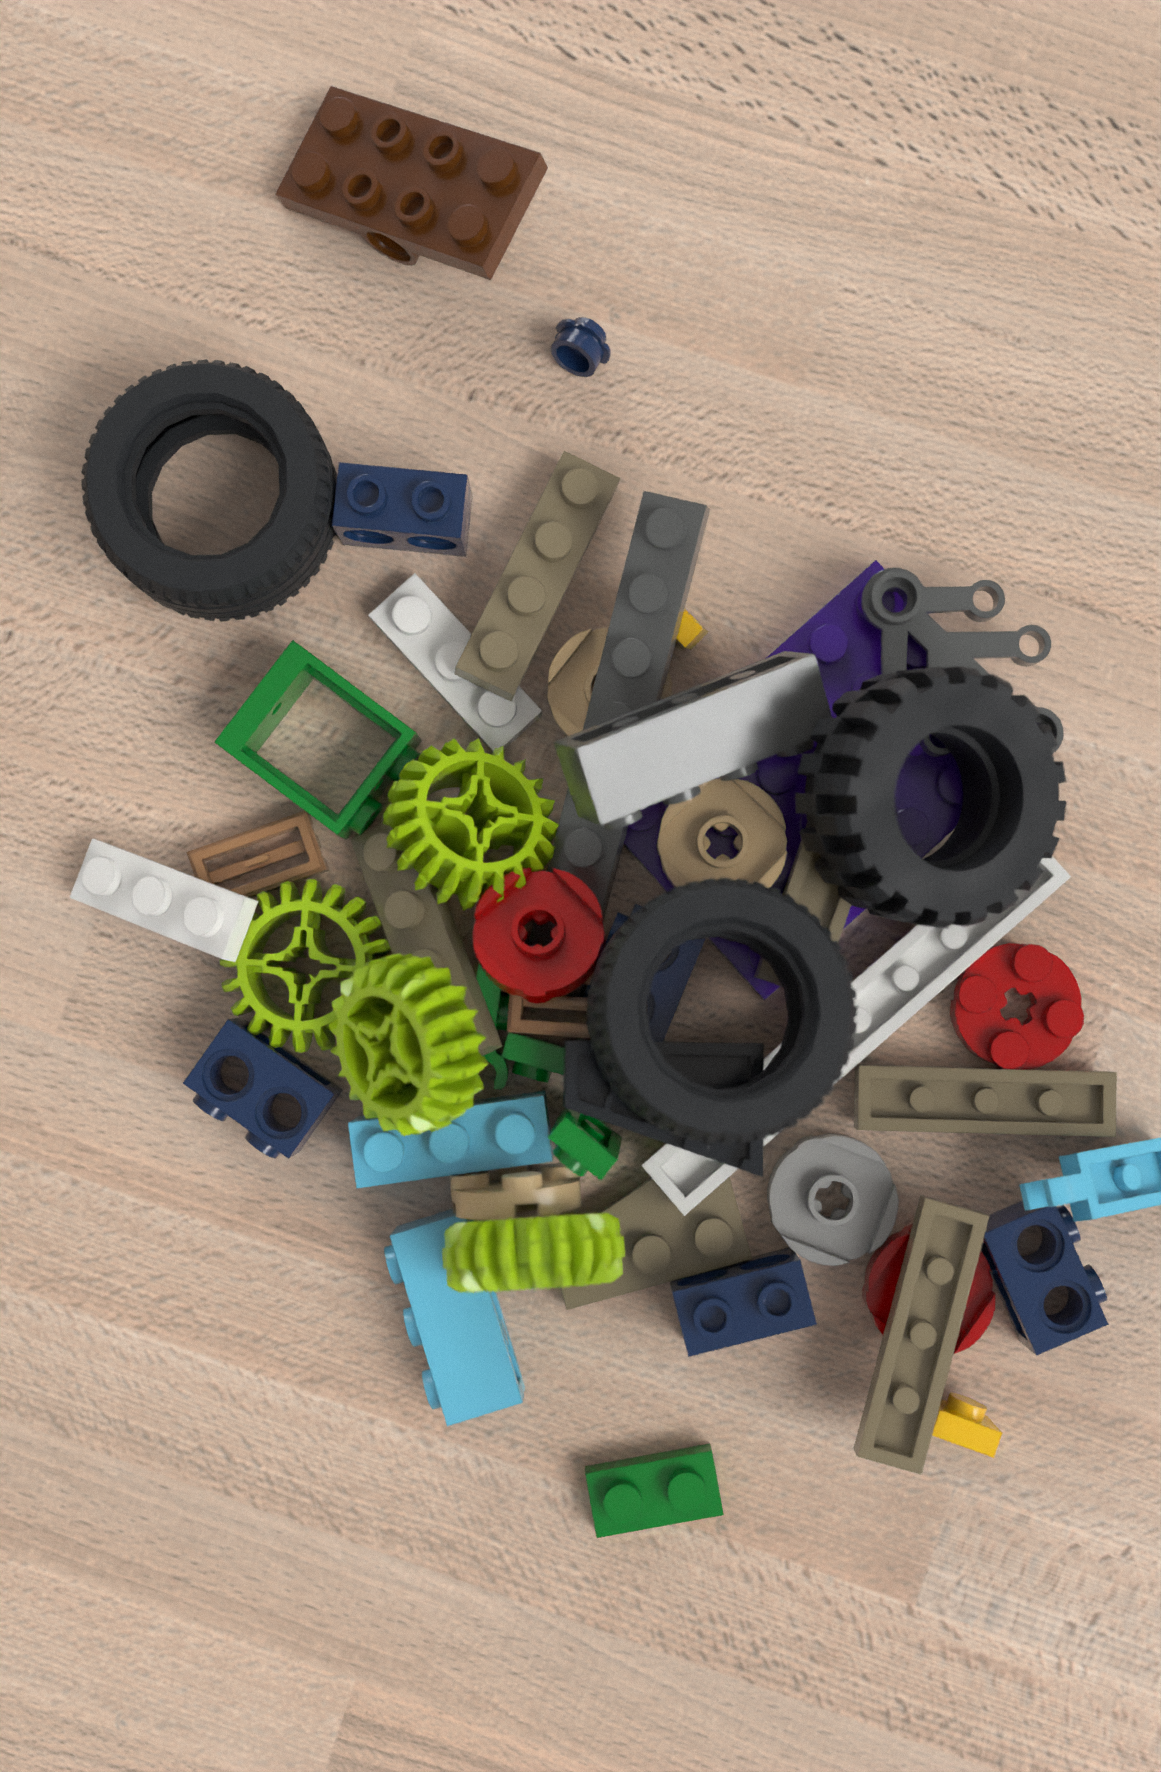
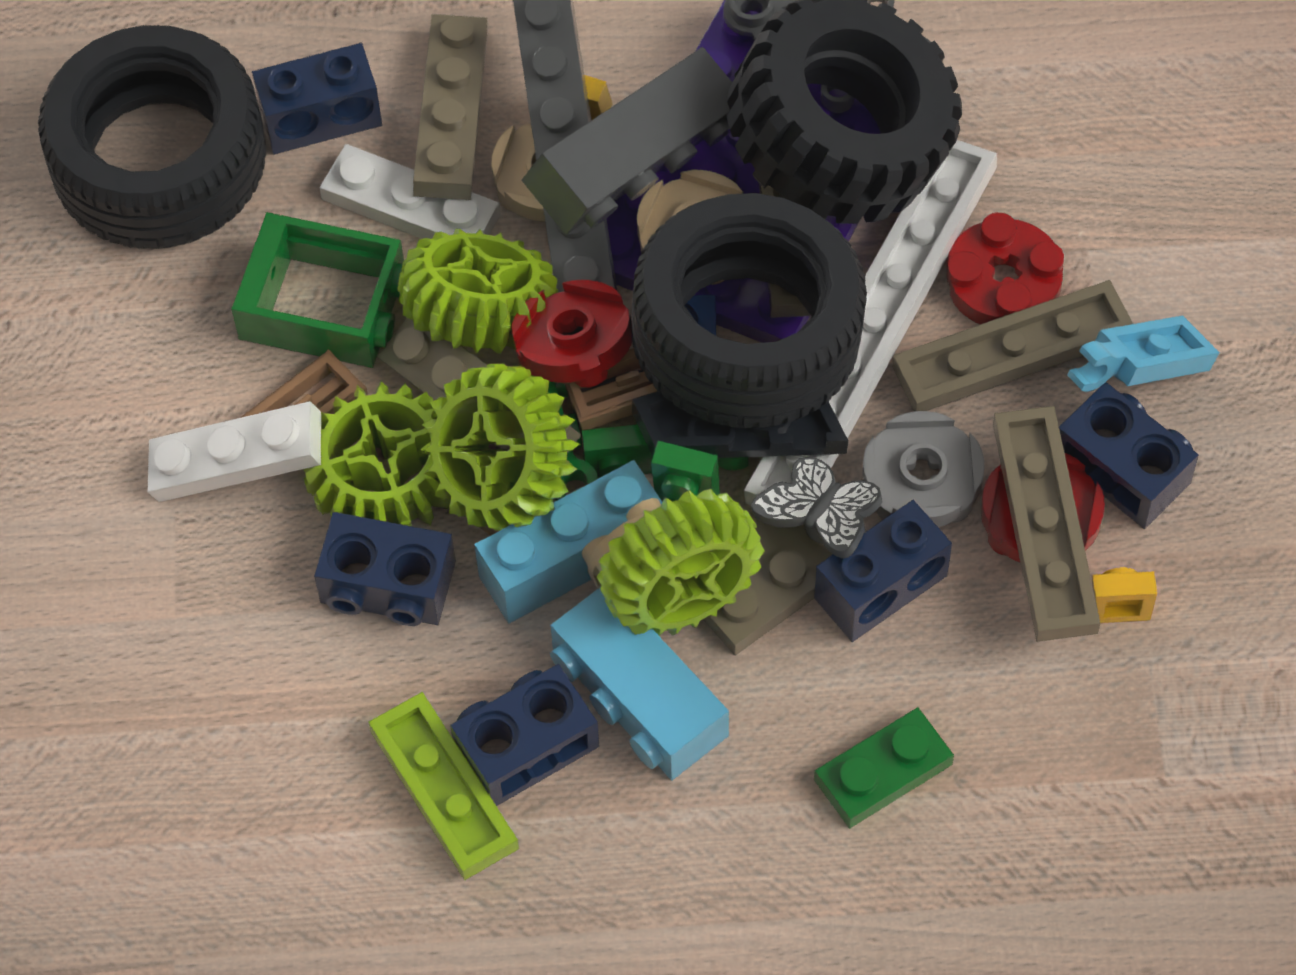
camera: 25 degrees left, 25 degrees down
(231, 1338) = (443, 786): none -> lime plate
(331, 1338) = (535, 746): none -> dark blue brick
(708, 1228) = (826, 508): none -> dark grey animal

